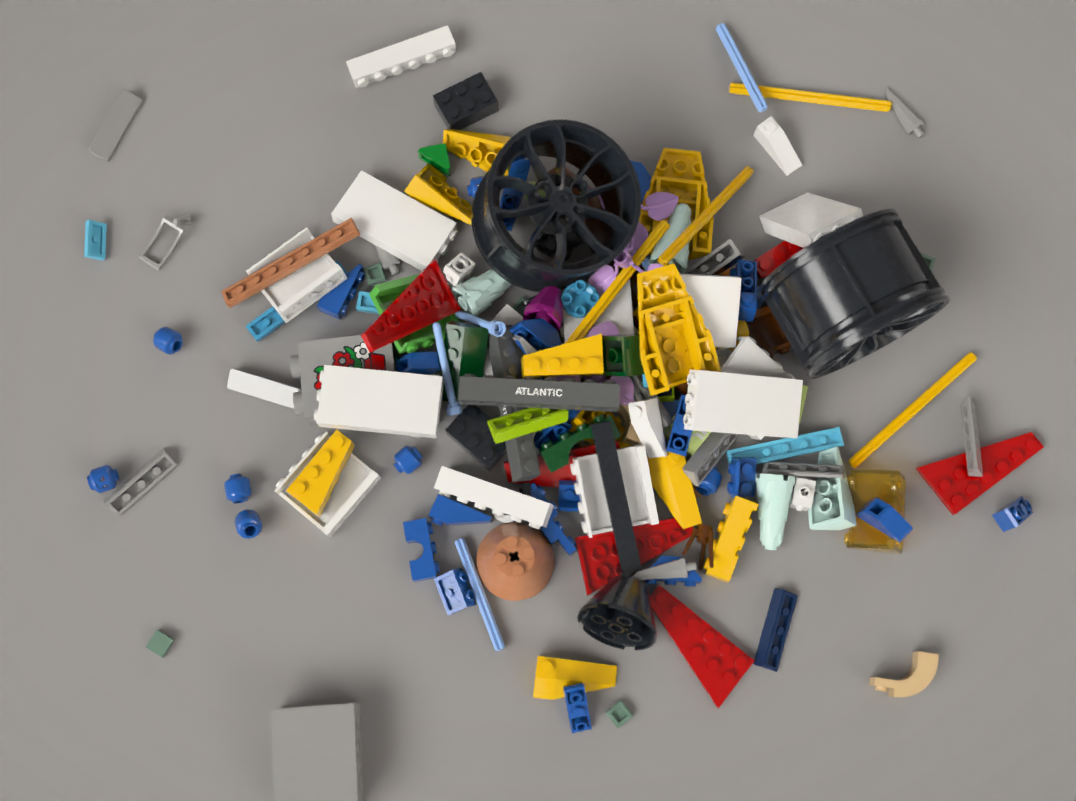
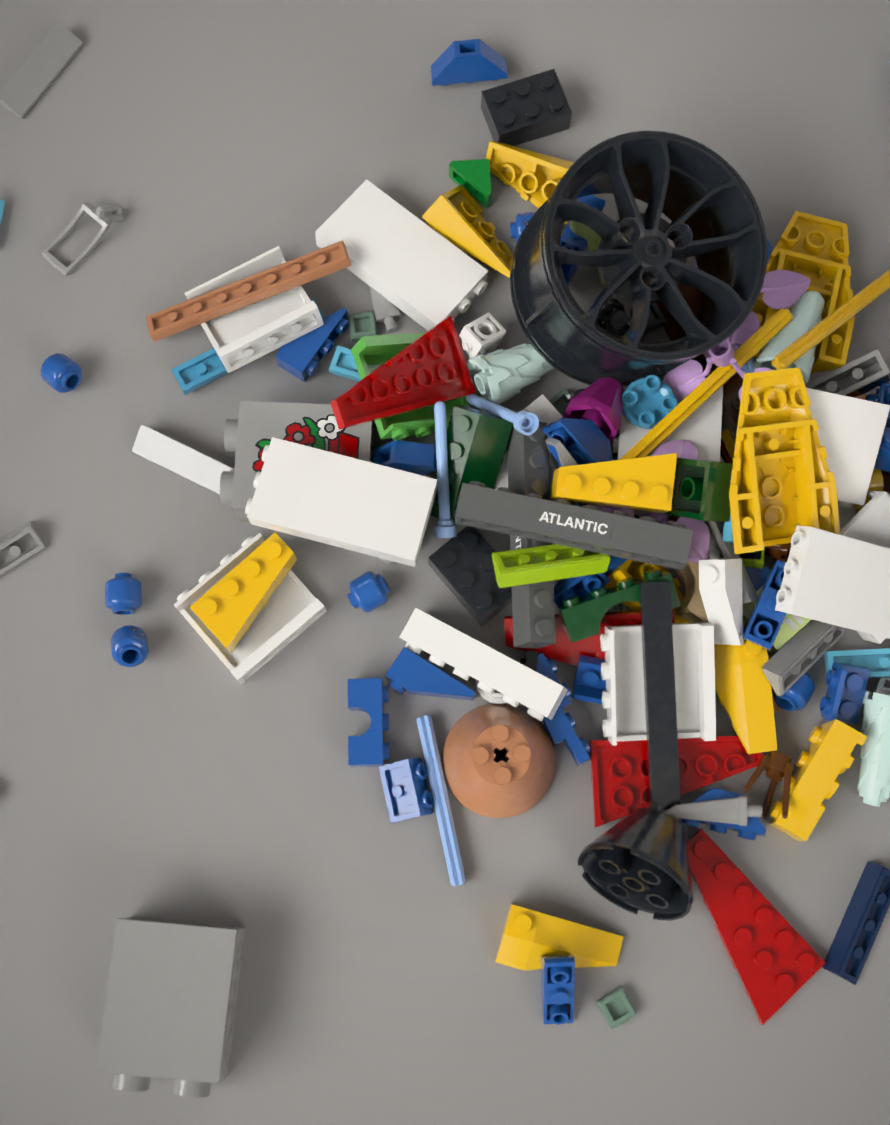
camera: 10 degrees right, 0 degrees up
(401, 57) = (431, 36): white brick -> none
(420, 75) = (468, 62): none -> blue slope

